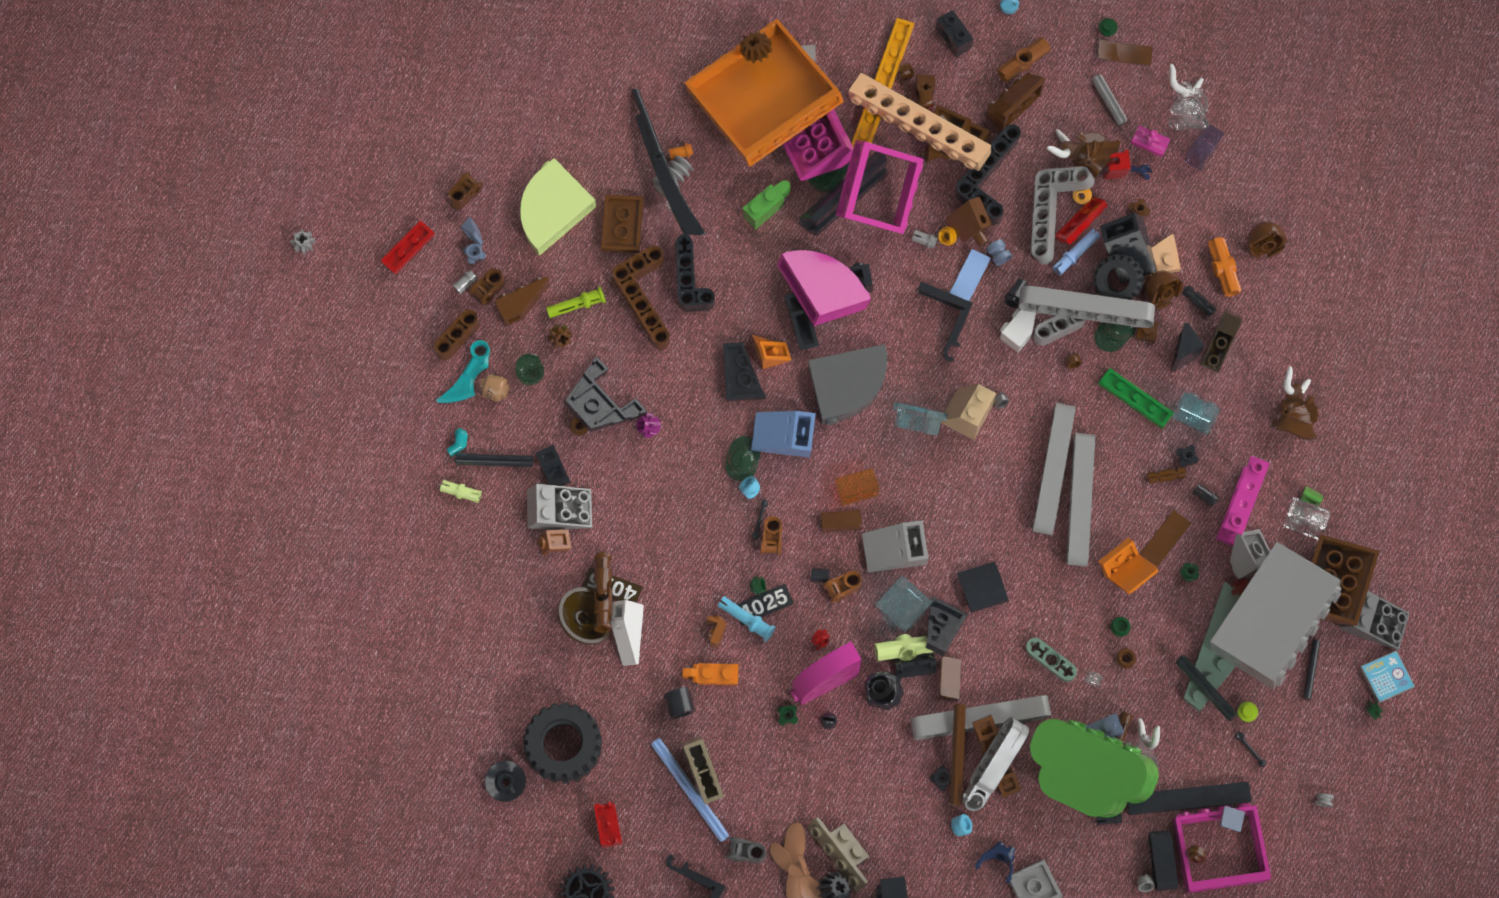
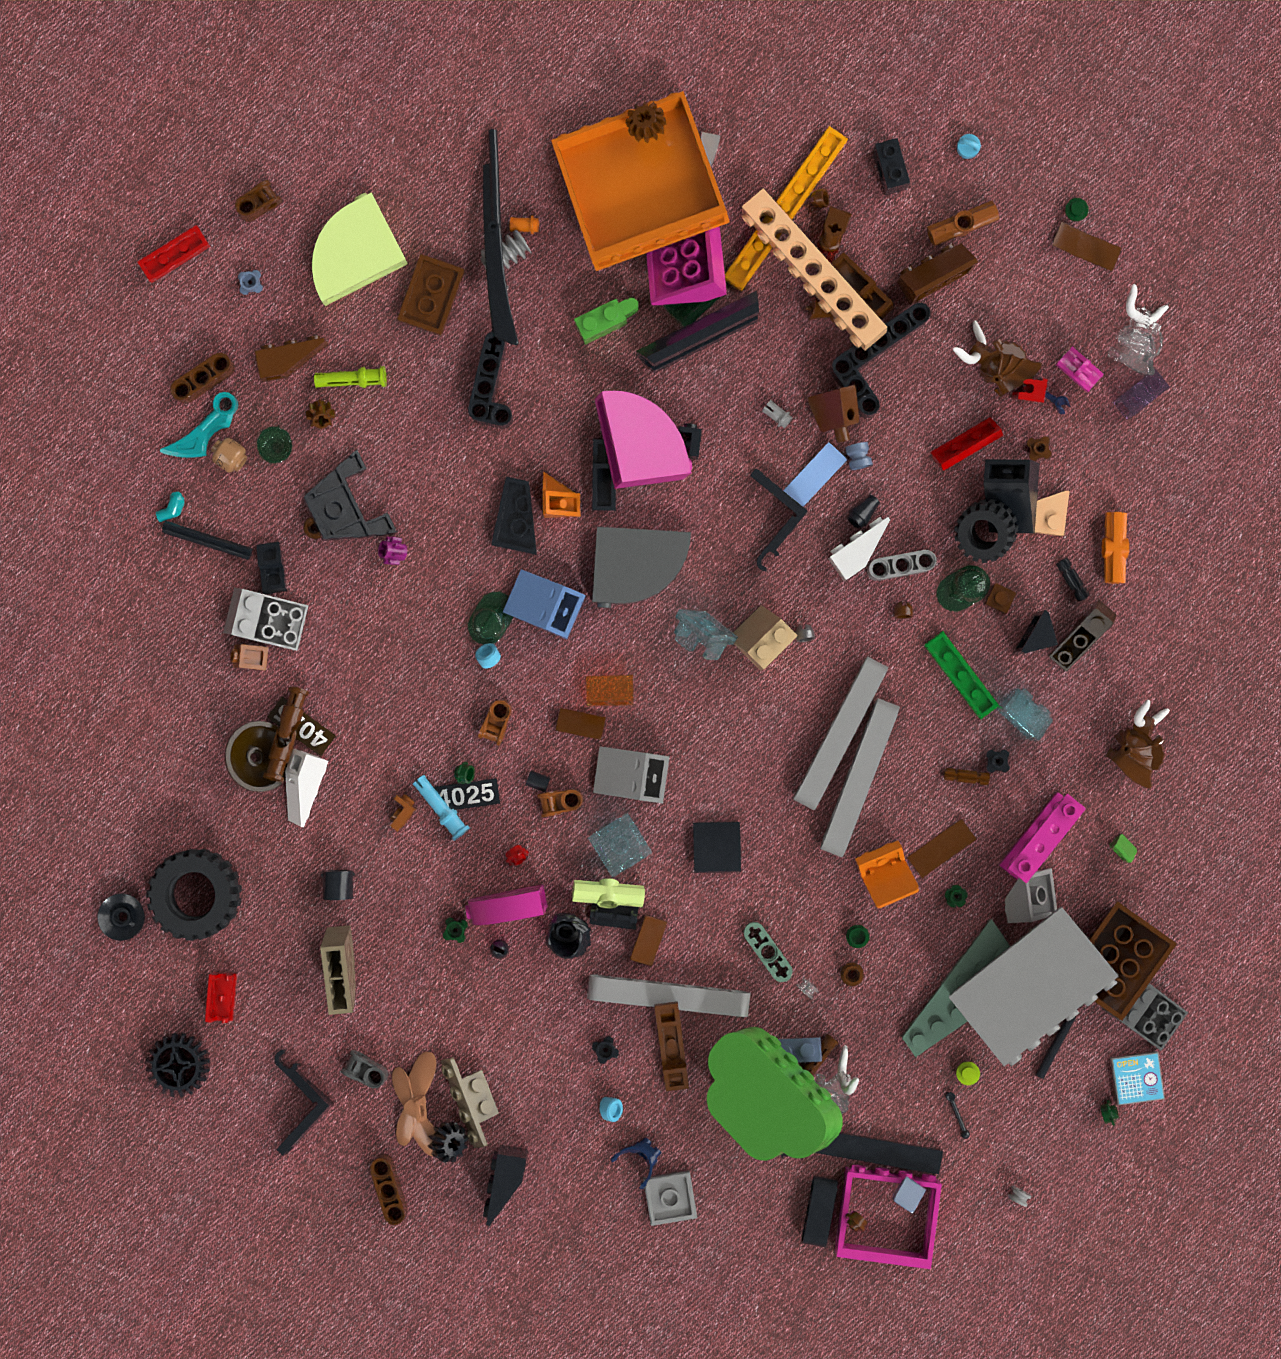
camera: 15 degrees right, 15 degrees up
(298, 239) = (56, 218): light grey gear -> none
(460, 491) = (159, 566): yellowish green pin -> none
(465, 281) = (229, 315): light grey pin -> none
(472, 231) = (254, 255): sand blue slope -> none
(485, 289) = (252, 329): reddish brown piece -> none
(639, 296) = (425, 391): reddish brown beam -> none
(690, 789) = (315, 962): light blue axle -> none
(712, 674) = (385, 859): orange hinge -> none
(755, 535) = (480, 711): black hinge -> none
(854, 178) = (711, 326): dark pink window -> none
(943, 236) = (804, 418): light orange plate -> none
(943, 625) = (657, 882): black wing -> none
(957, 761) = (629, 1032): reddish brown axle -> none
(995, 763) = (667, 1055): light grey piece -> none
(1048, 207) = (935, 418): light grey beam -> none
(1070, 258) = (941, 484): light blue pin -> none
(1087, 306) = (937, 556): light grey beam -> none
(1088, 195) = (980, 406): light orange plate -> none
(1109, 99) = (1048, 301): light grey axle -> none
(1145, 883) = (792, 1230): light grey hinge -> none
(1161, 288) = (1032, 553): reddish brown cylinder -> none
(1206, 687) = (930, 1036): black axle -> none
(1207, 496) = (1003, 814): black pin -> none
(1239, 586) = (1008, 933): clear red plate -> none
(1266, 239) = (1175, 528): reddish brown cylinder -> none
(1306, 518) = (1109, 872): clear bracket -> none

